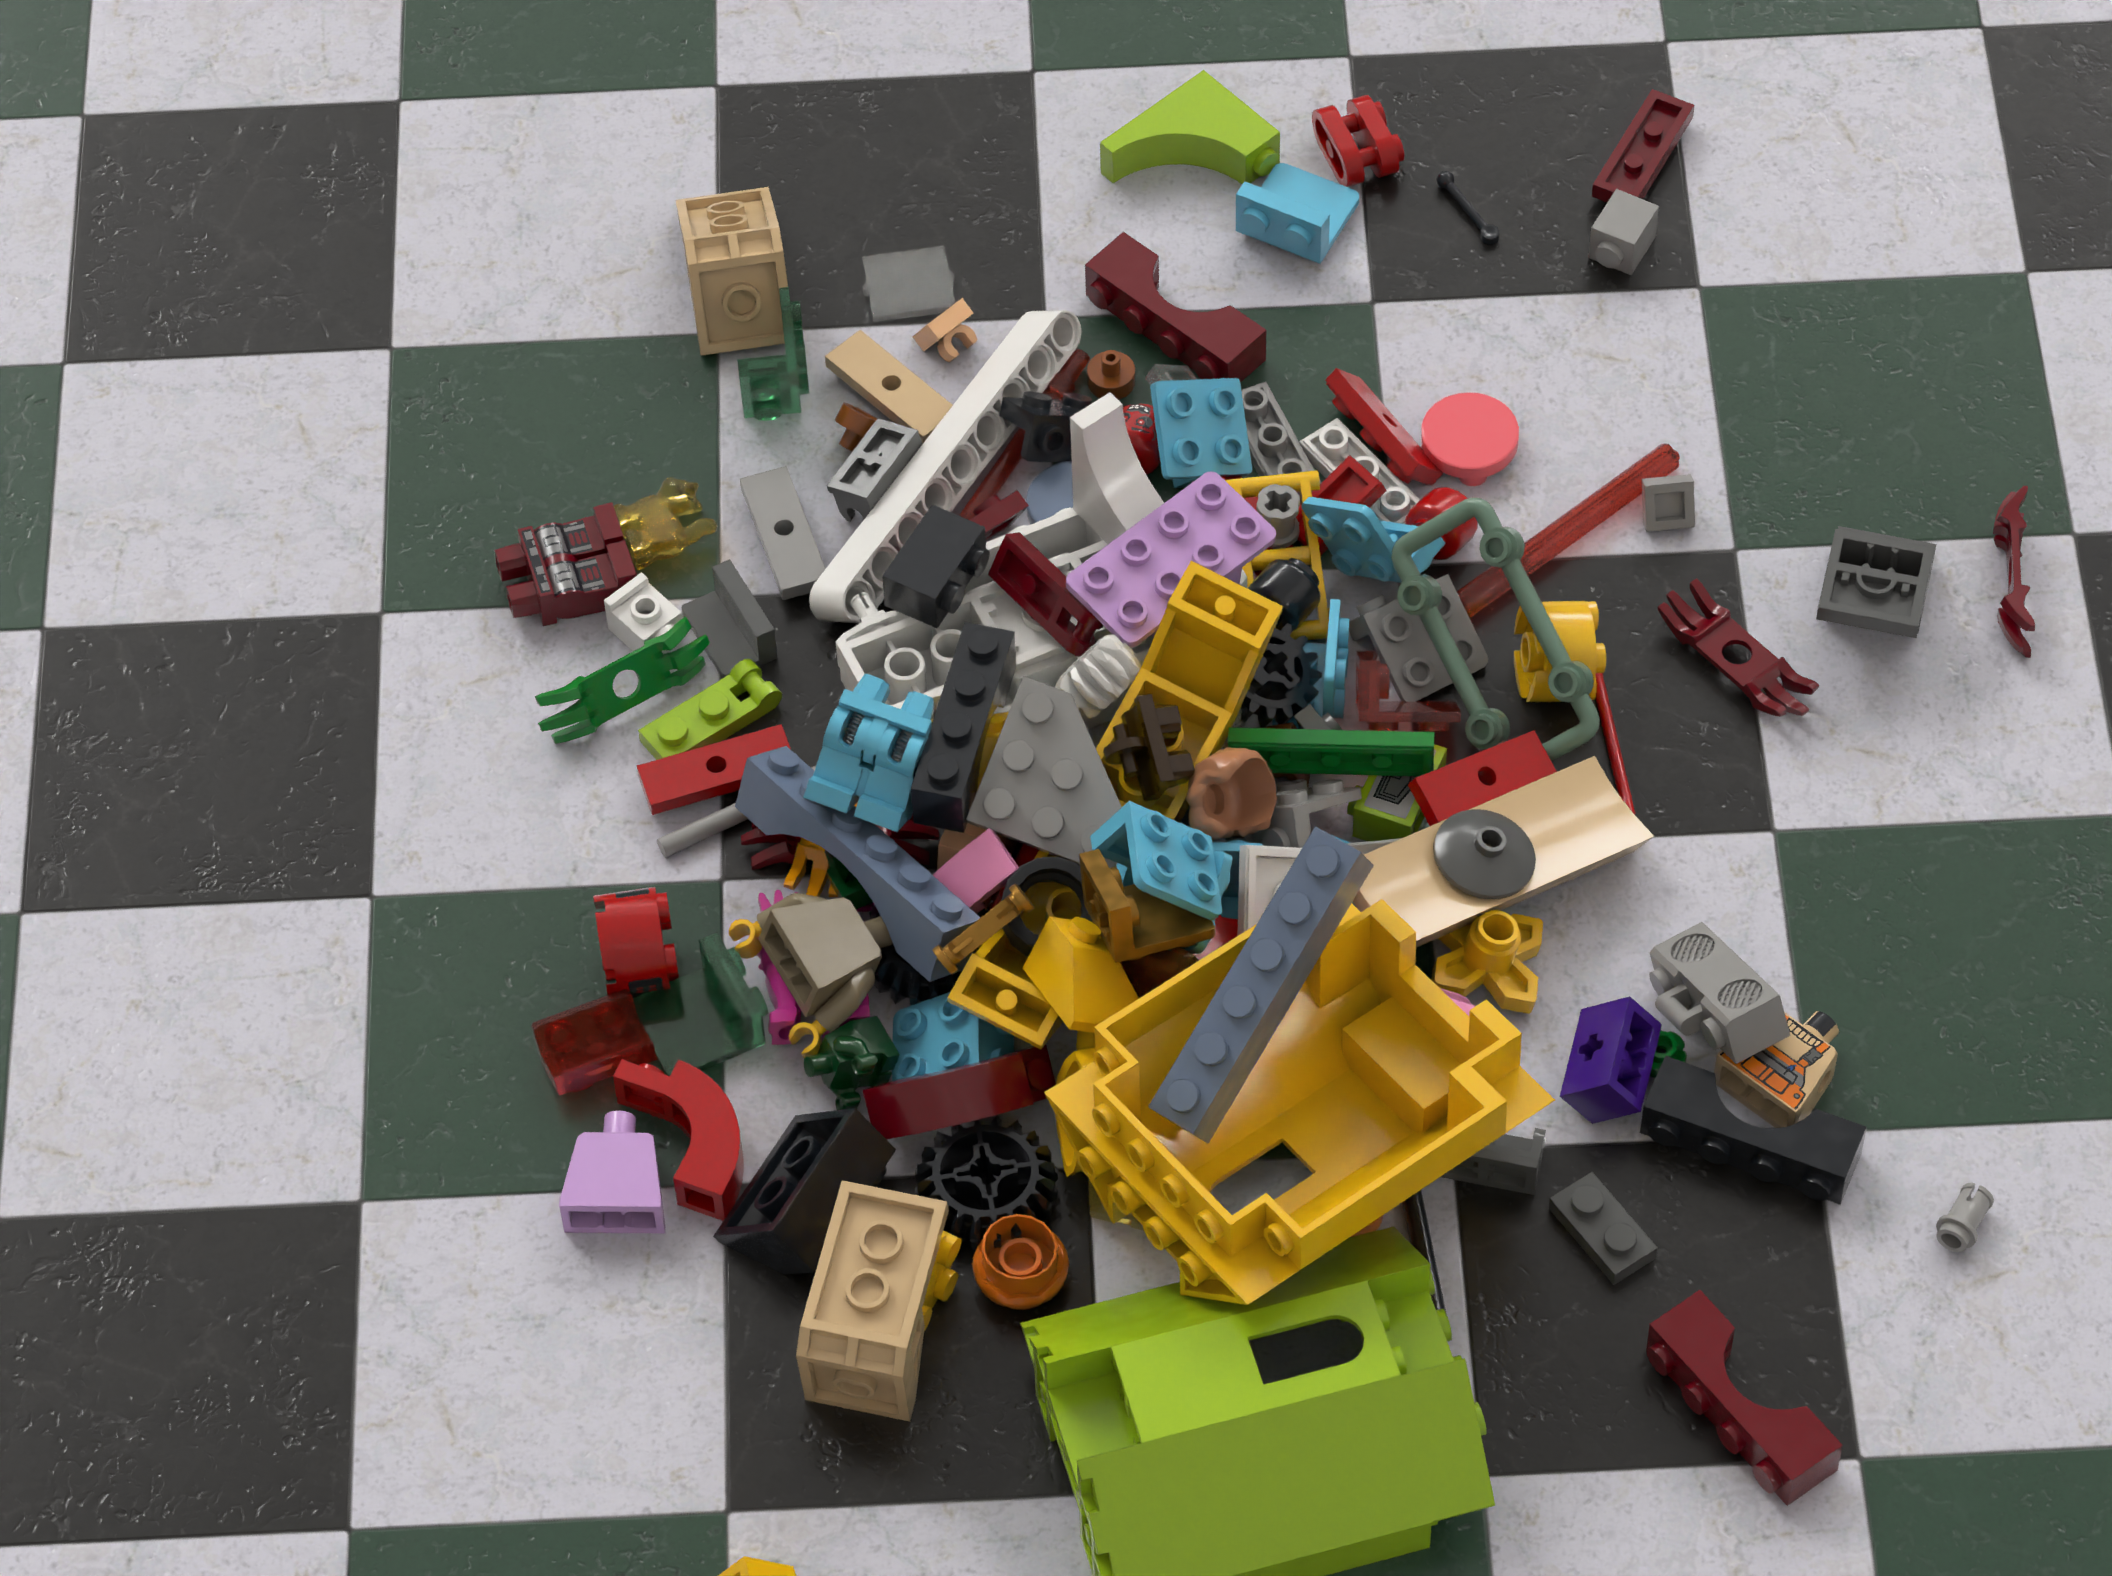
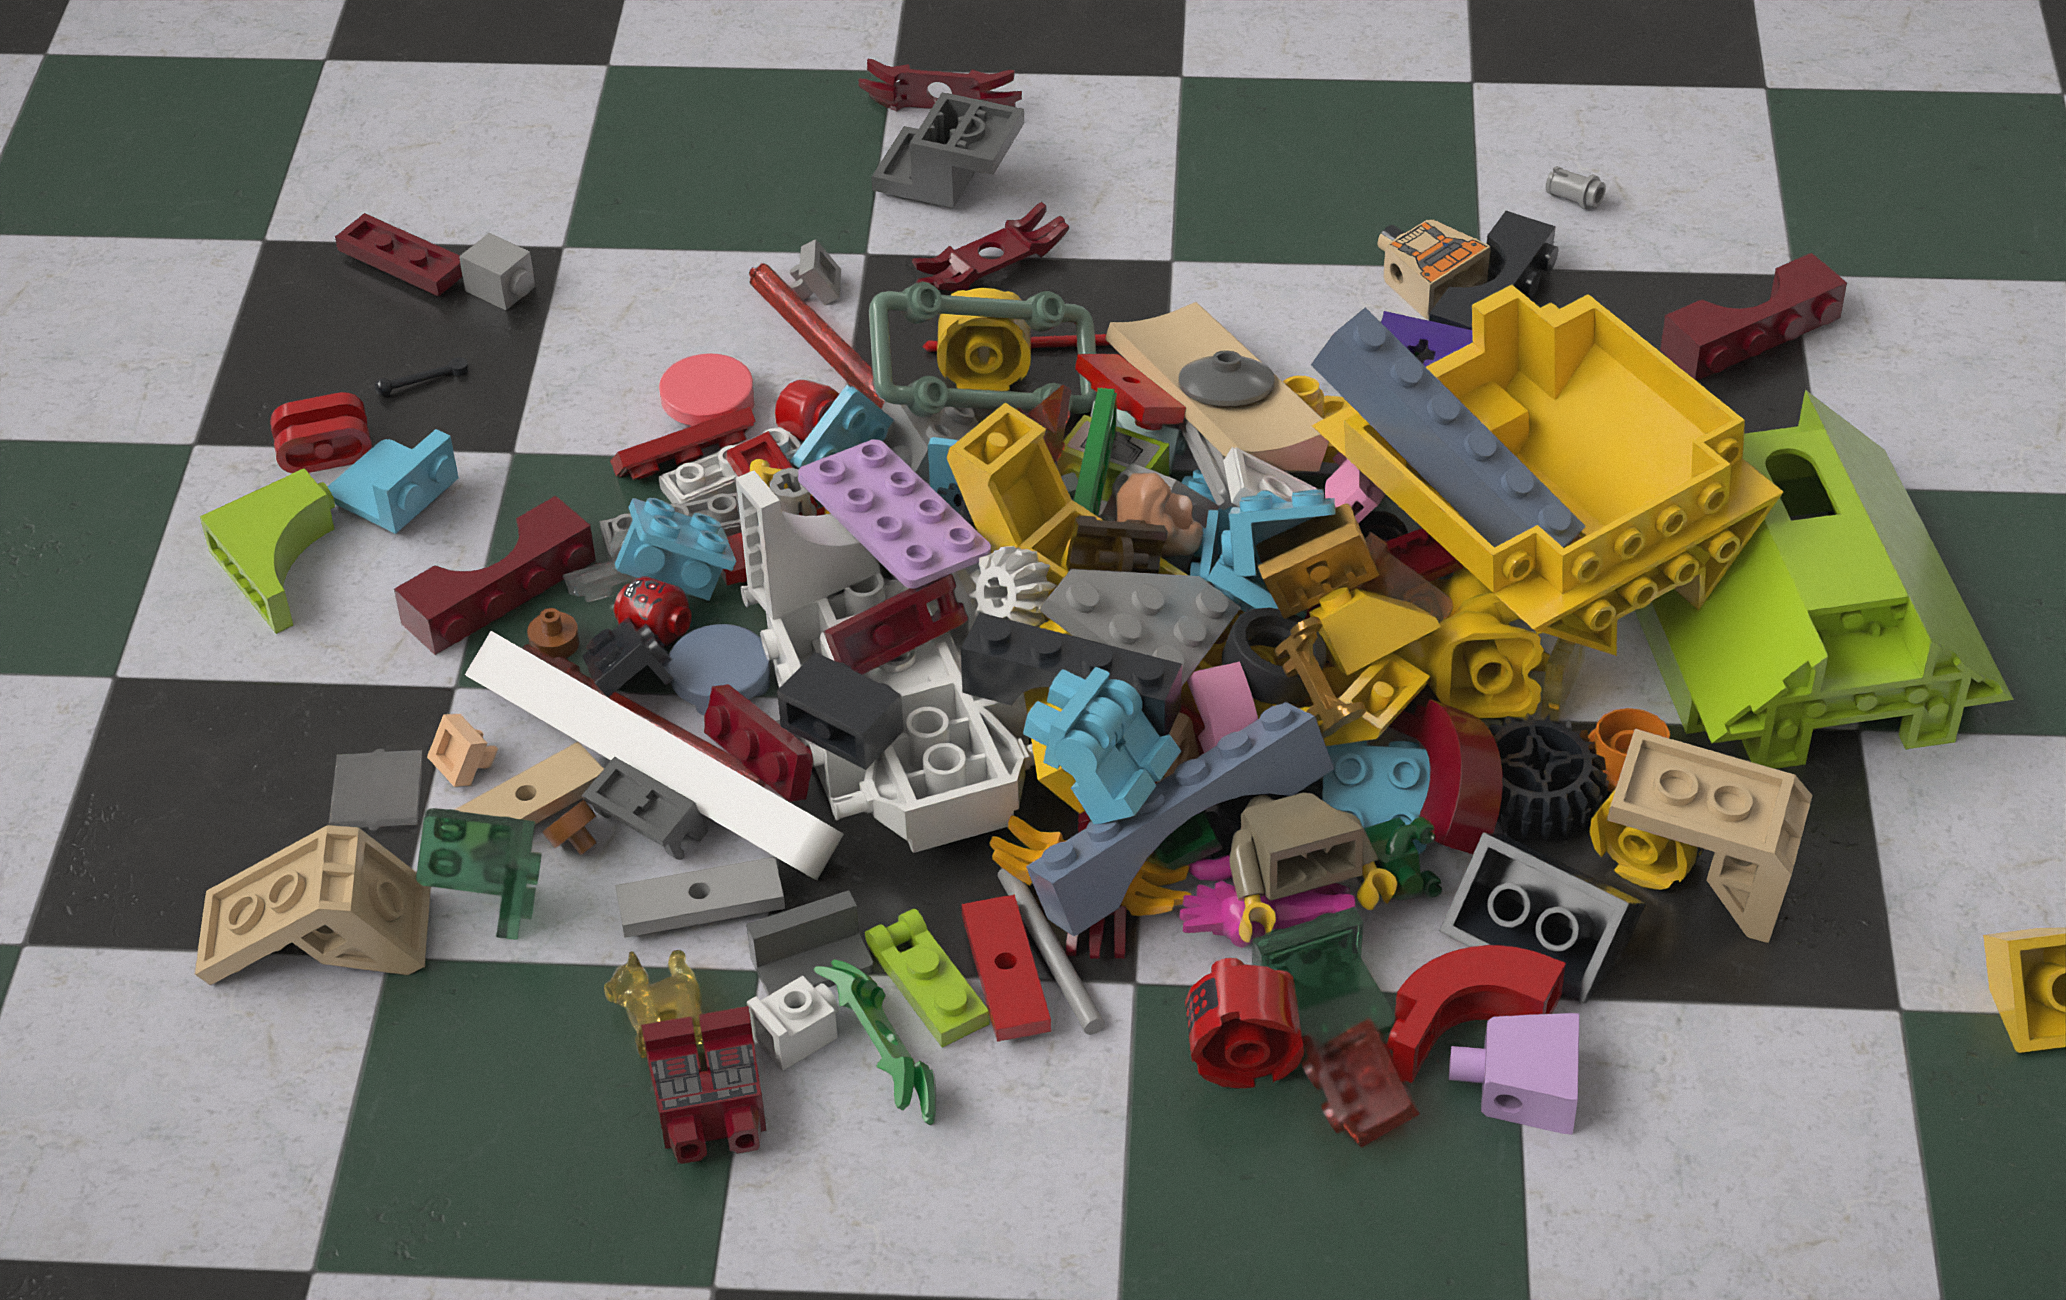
camera: 85 degrees left, 10 degrees down
(1715, 991) = (1371, 272): light grey piece -> none

